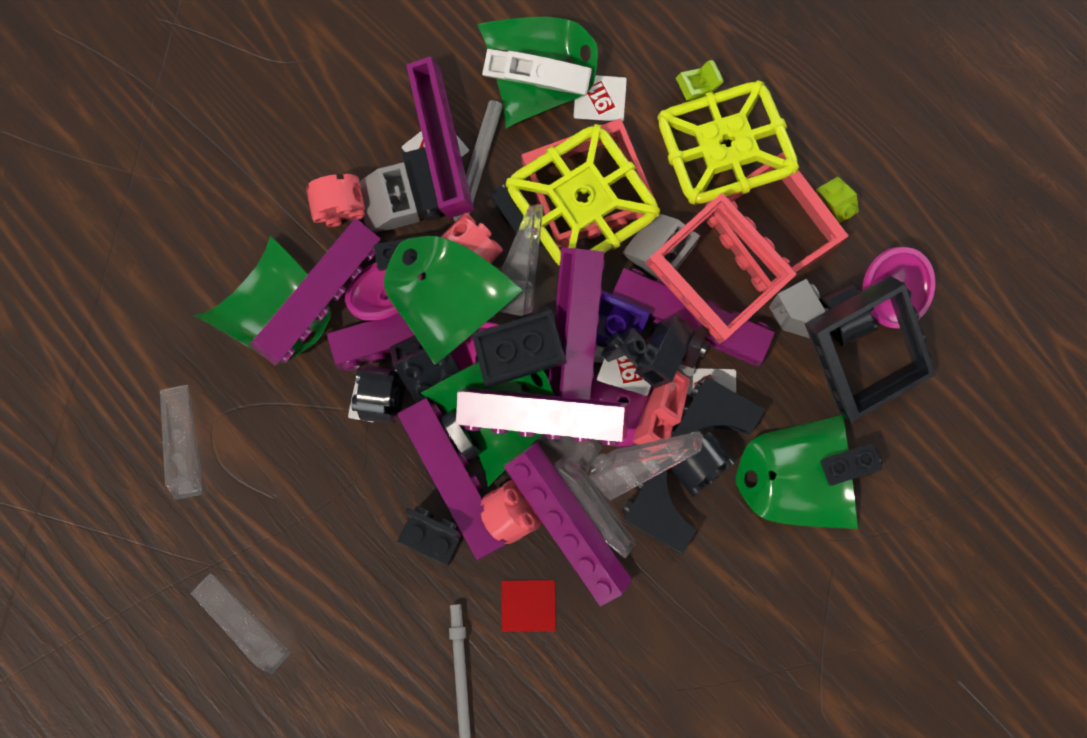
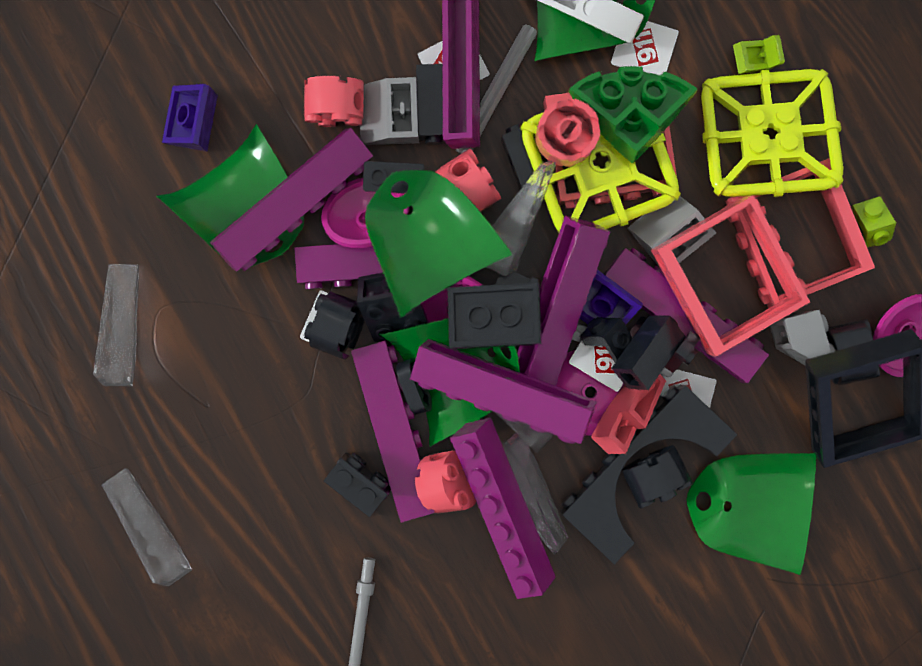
camera: 10 degrees right, 10 degrees up
(210, 243) = (190, 116): none -> dark purple slope
(528, 605) = (443, 575): red sticker -> none
(546, 176) = (567, 132): none -> coral brick
(598, 143) = (633, 105): none -> green brick
(635, 464) = (589, 463): clear slope -> none
(851, 464) = (813, 513): black bracket -> none

